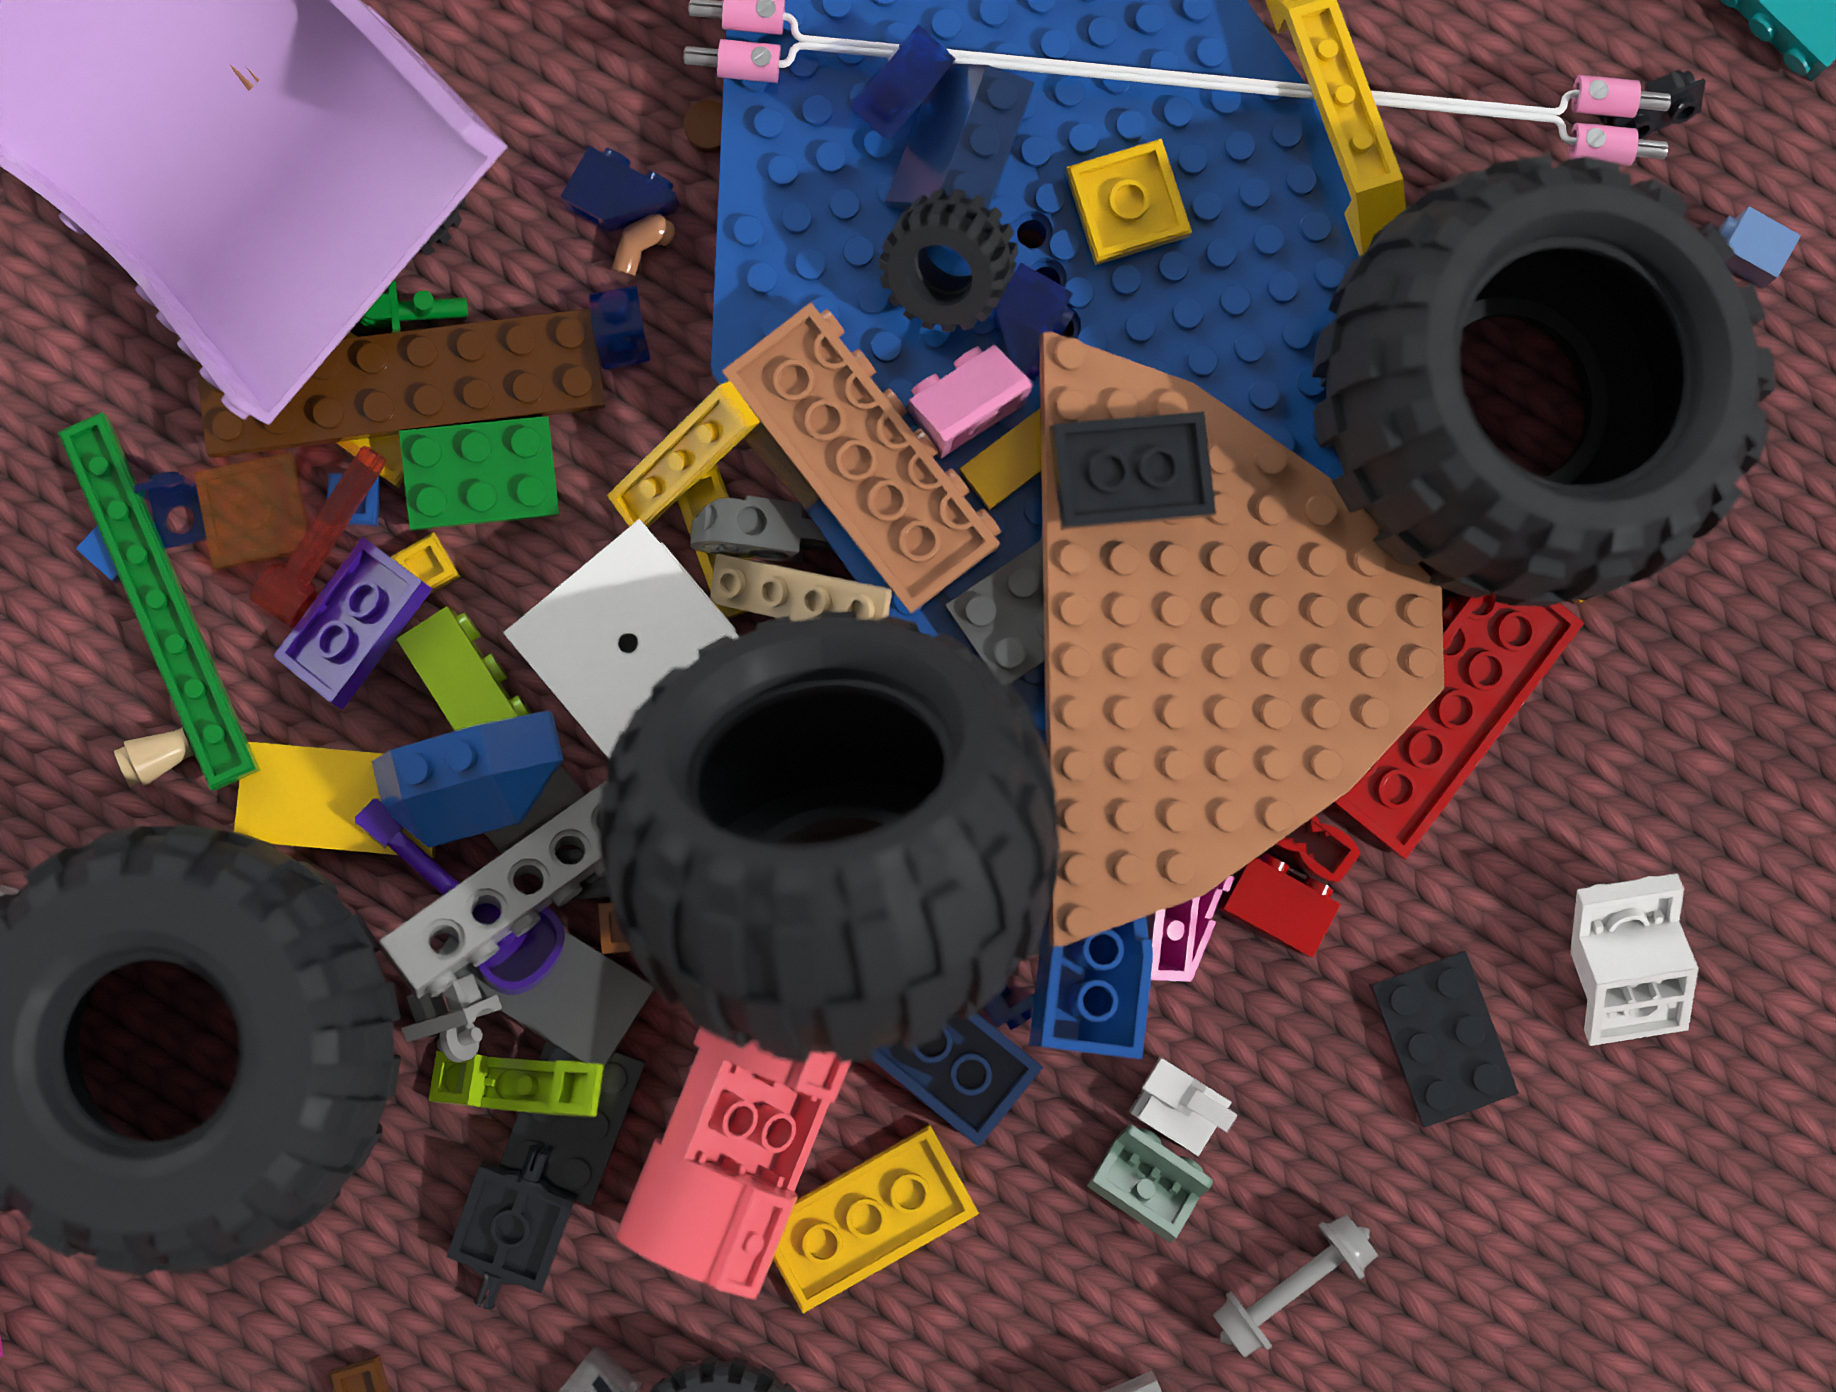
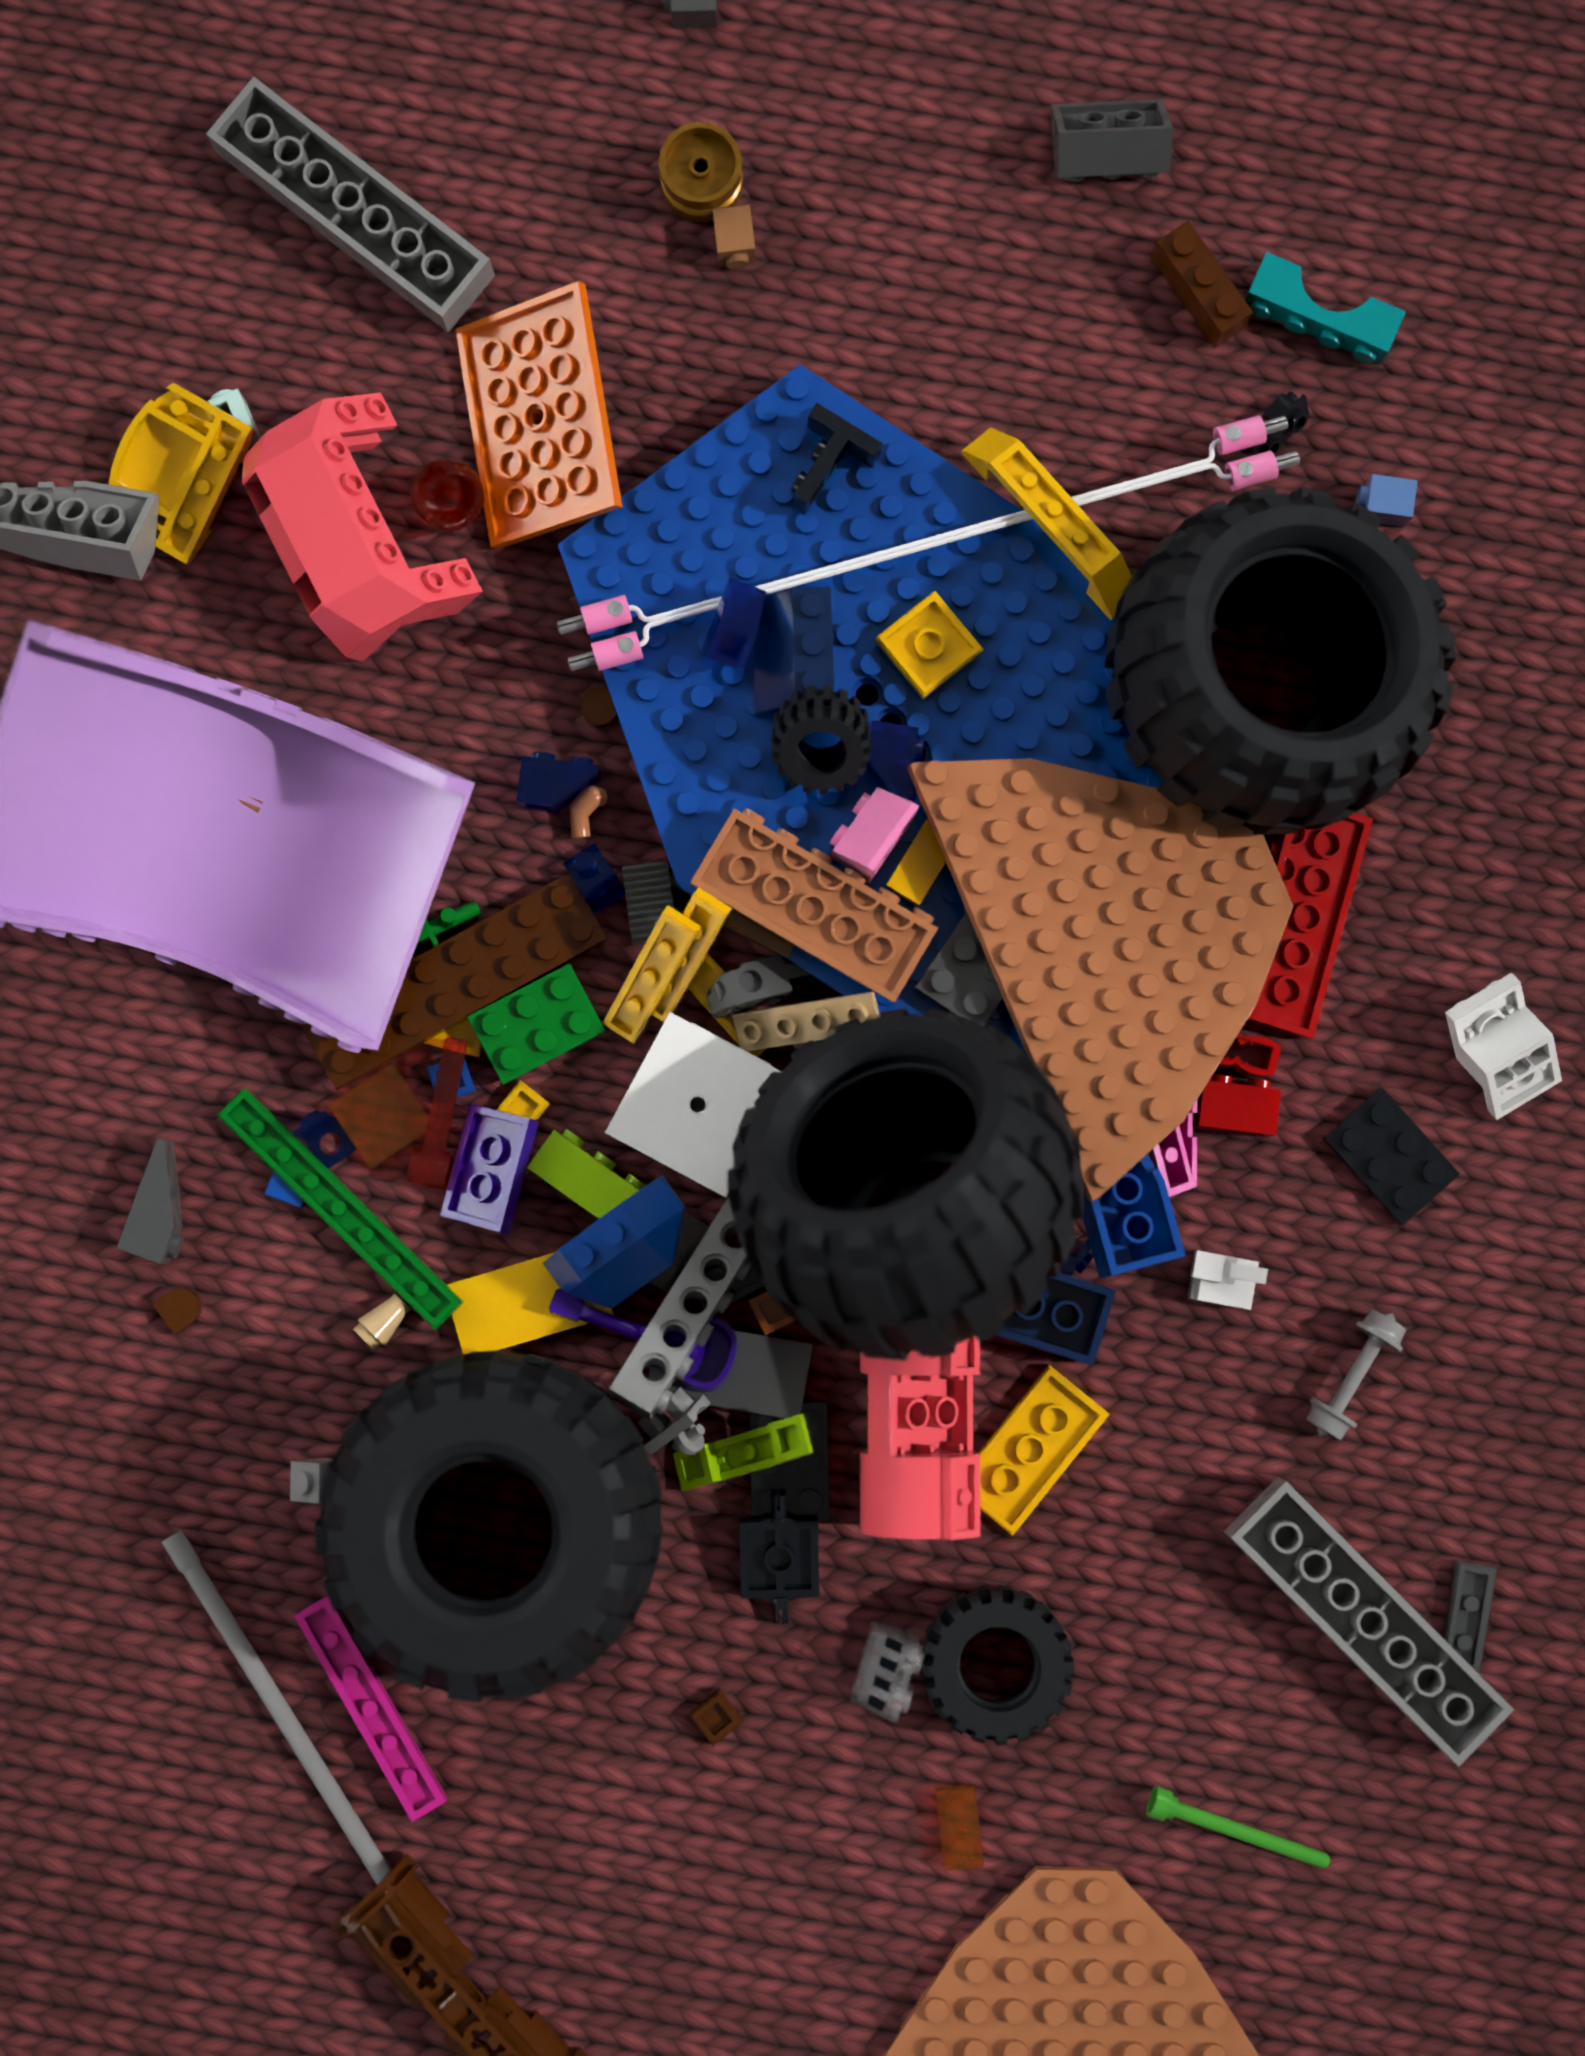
camera: 20 degrees left, 0 degrees up
(636, 465) = (651, 974): none -> yellow tile
(672, 379) = (648, 892): none -> dark grey brick
(1132, 470) = (1013, 839): black plate -> none
(1150, 1181) = (1223, 1342): sand green bracket -> none

